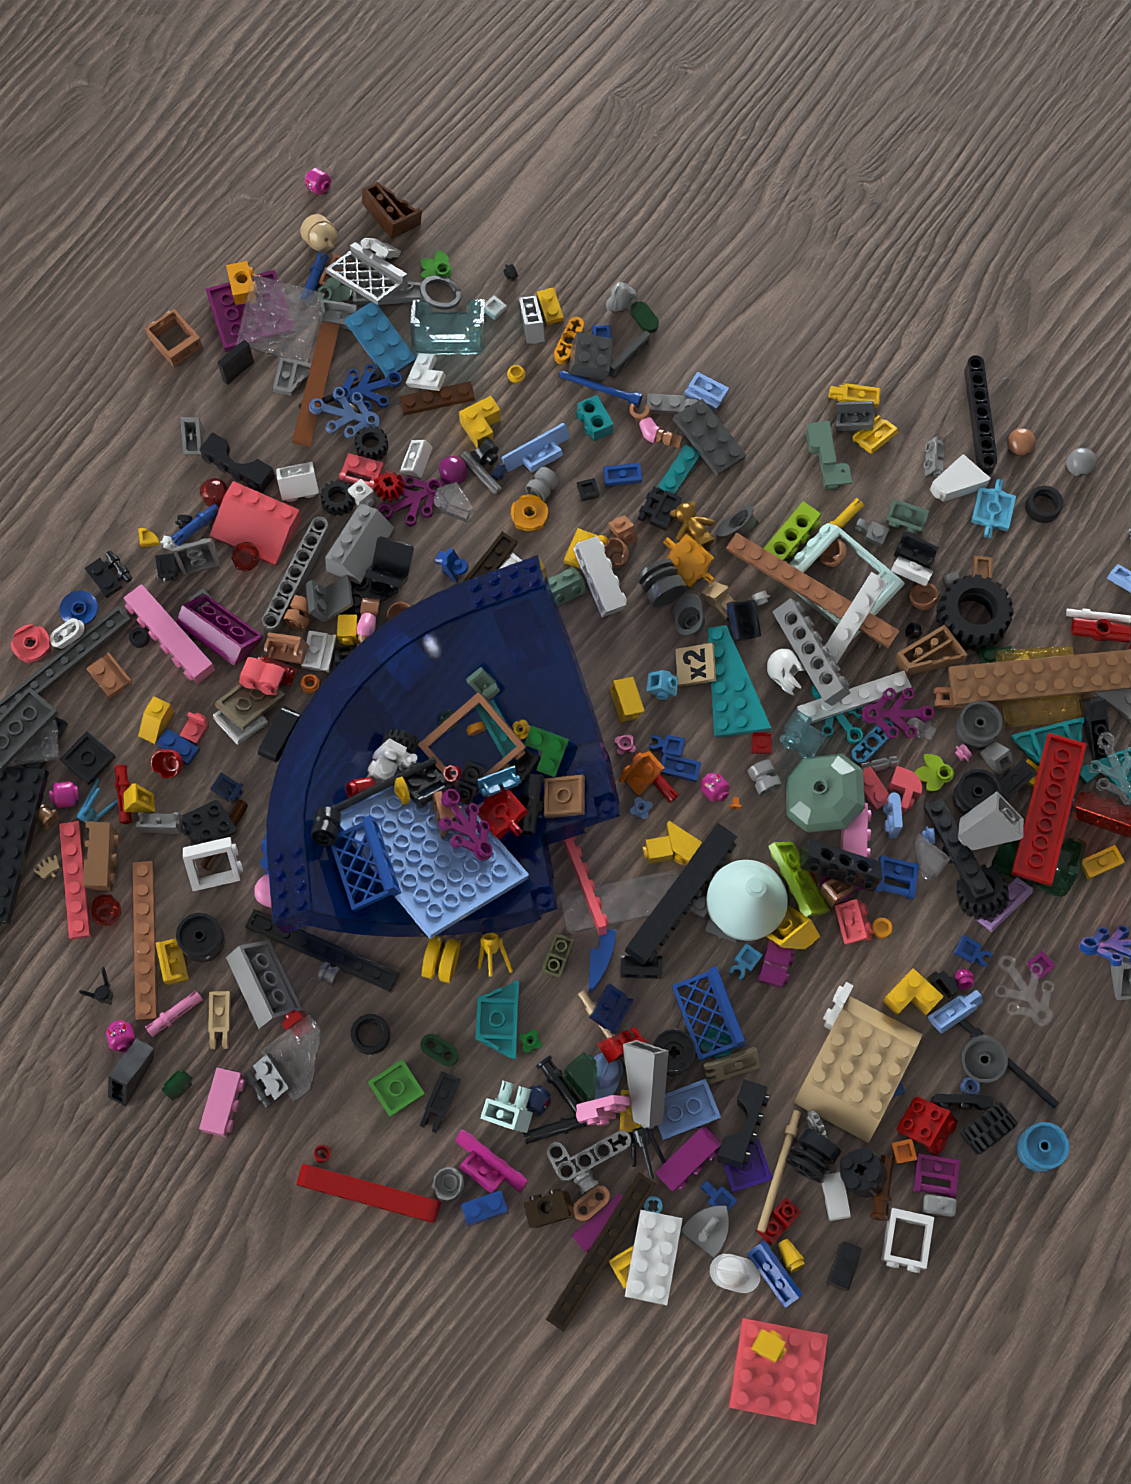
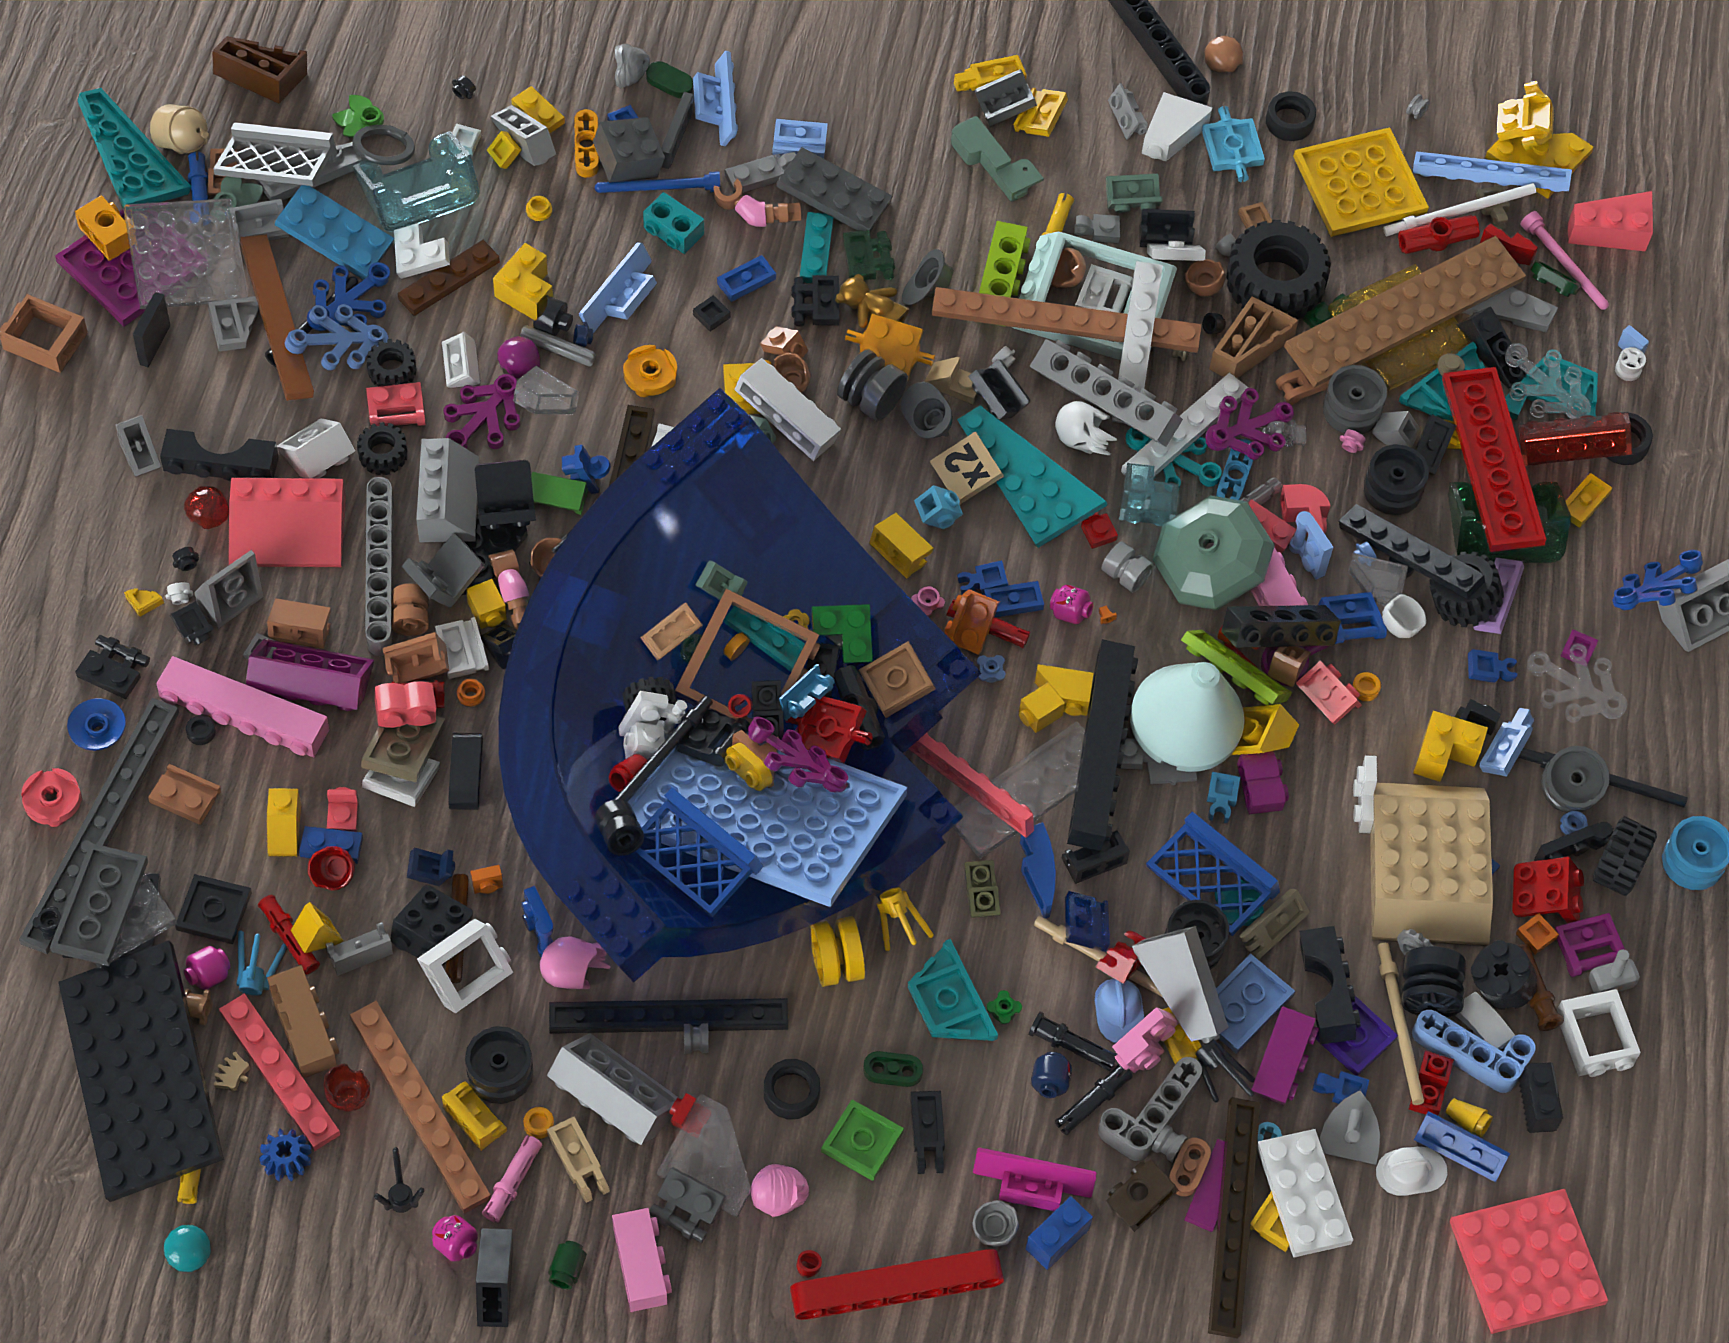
camera: 30 degrees left, 10 degrees down
(56, 938) = (285, 1144): none -> blue gear
(67, 633) = (100, 760): white plate -> none
(202, 519) = (209, 547): blue pin -> none
(209, 983) = (537, 1122): none -> light orange tile
(229, 593) = (299, 623): none -> nougat hinge
(245, 556) = (297, 567): clear red hair -> none
(256, 812) = (487, 879): none -> orange plate
(282, 243) = (132, 161): none -> teal wing
(317, 181) = (138, 67): dark pink head -> none
(327, 1097) = (779, 1189): none -> bright pink hair
(362, 493) = (416, 427): white bracket -> none
(382, 249) = (279, 118): white plate -> none
(385, 480) = (447, 405): red gear -> none
(402, 791) = (687, 752): yellow tile -> none
(428, 573) = (559, 492): none -> bright green hinge
(431, 810) = (748, 766): none -> yellow plate
(438, 702) = (671, 631): none -> light nougat plate
(507, 1115) = (1026, 1103): light aqua brick -> none
(513, 325) = (504, 149): none -> yellow plate
(542, 484) = (649, 325): light grey wheel -> none
(582, 1076) = (1099, 1015): clear green slope -> none
(665, 340) = (716, 98): none -> light blue bracket
(703, 490) = (860, 257): none -> clear green plate
(769, 1345) = (1504, 1228): yellow brick -> none
(817, 1208) = (1472, 1045): none -> light blue beam
(846, 576) = (1098, 286): none -> white plate
(931, 772) = (1327, 478): lime plate -> none
(931, 892) = (1404, 616): none -> white hair
(964, 979) = (1499, 701): dark pink plate -> none
(990, 824) = (1435, 500): light grey slope -> none
(1057, 727) = (1450, 363): none -> dark tan plate
(1067, 570) = (1360, 181): none -> yellow plate
(1081, 461) = (1307, 51): light grey hair -> none

